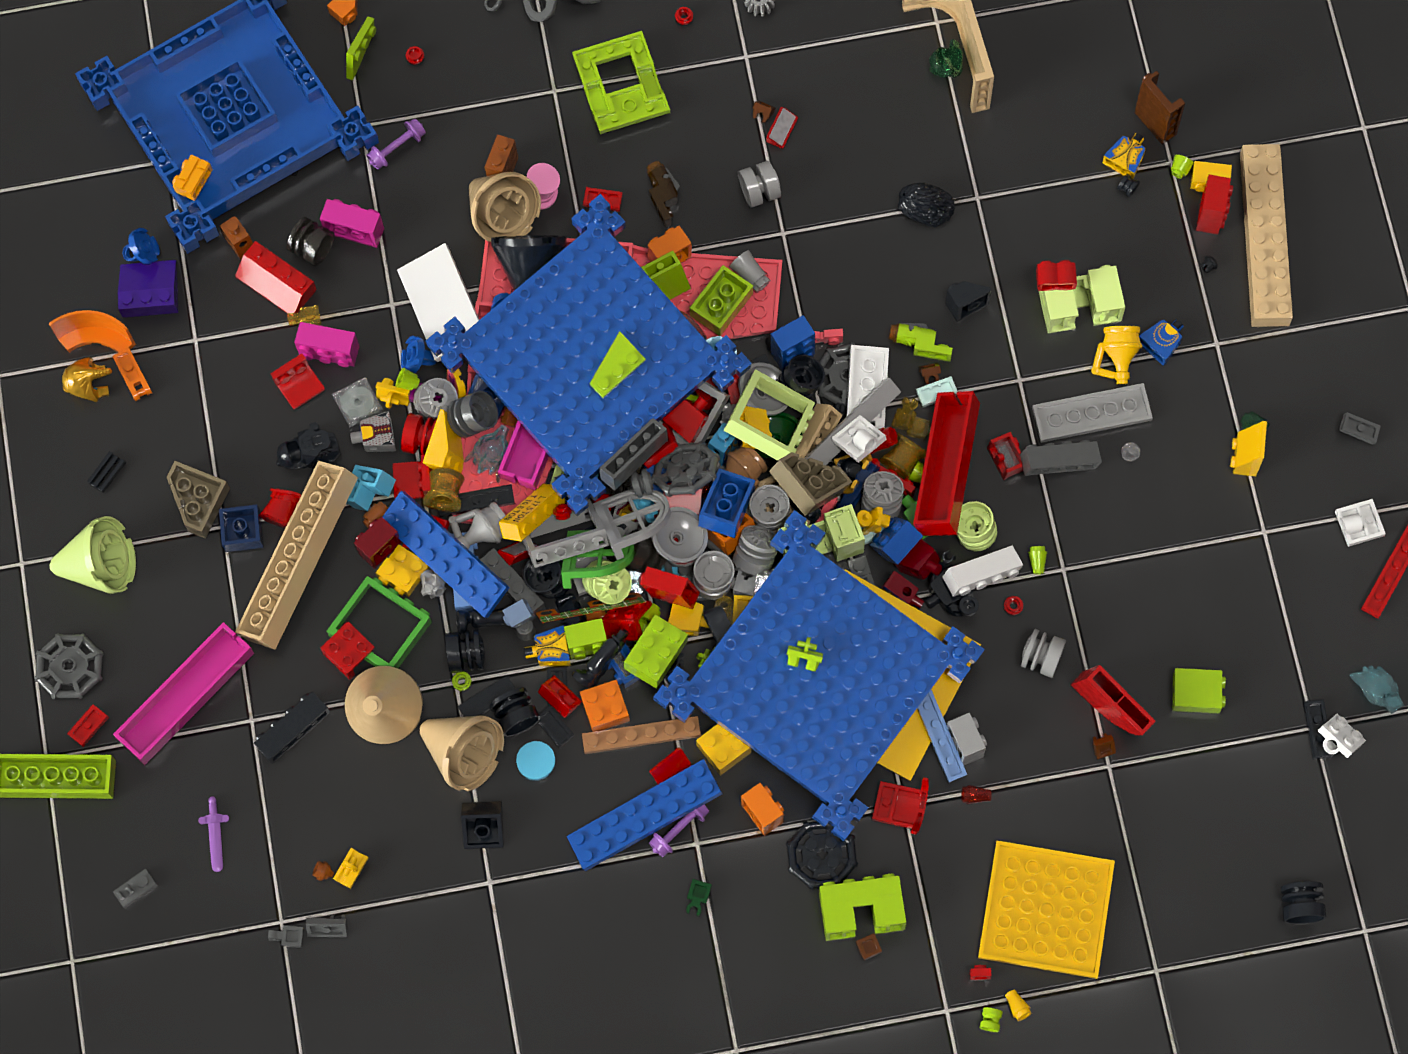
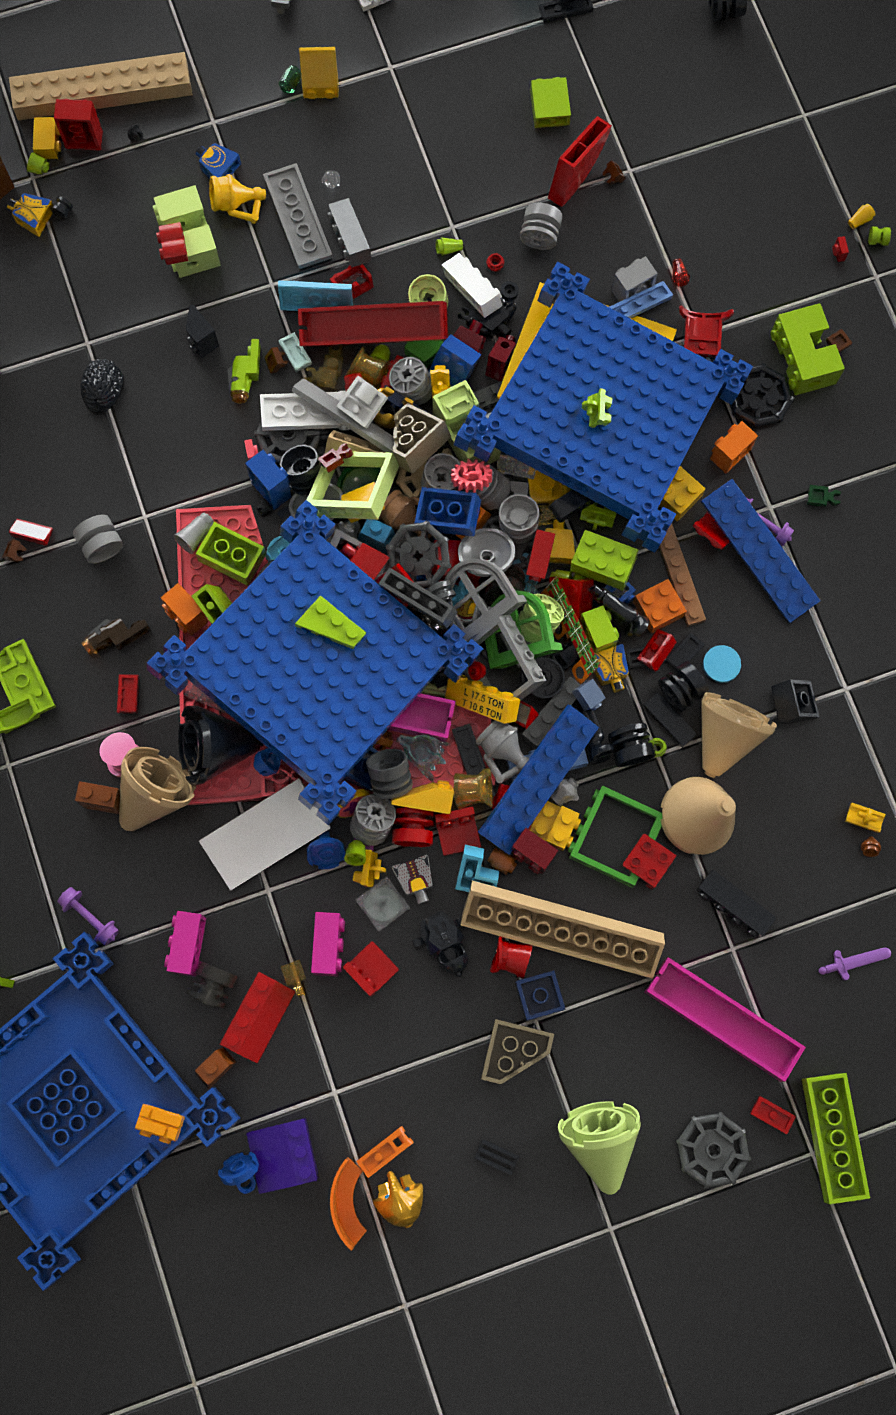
camera: 105 degrees left, 5 degrees up
(756, 526) = (470, 477): none -> coral gear
(801, 402) = (334, 459): none -> dark red plate
(990, 415) = (313, 294): none -> medium azure tile
(1046, 909) = (771, 203): yellow plate -> none

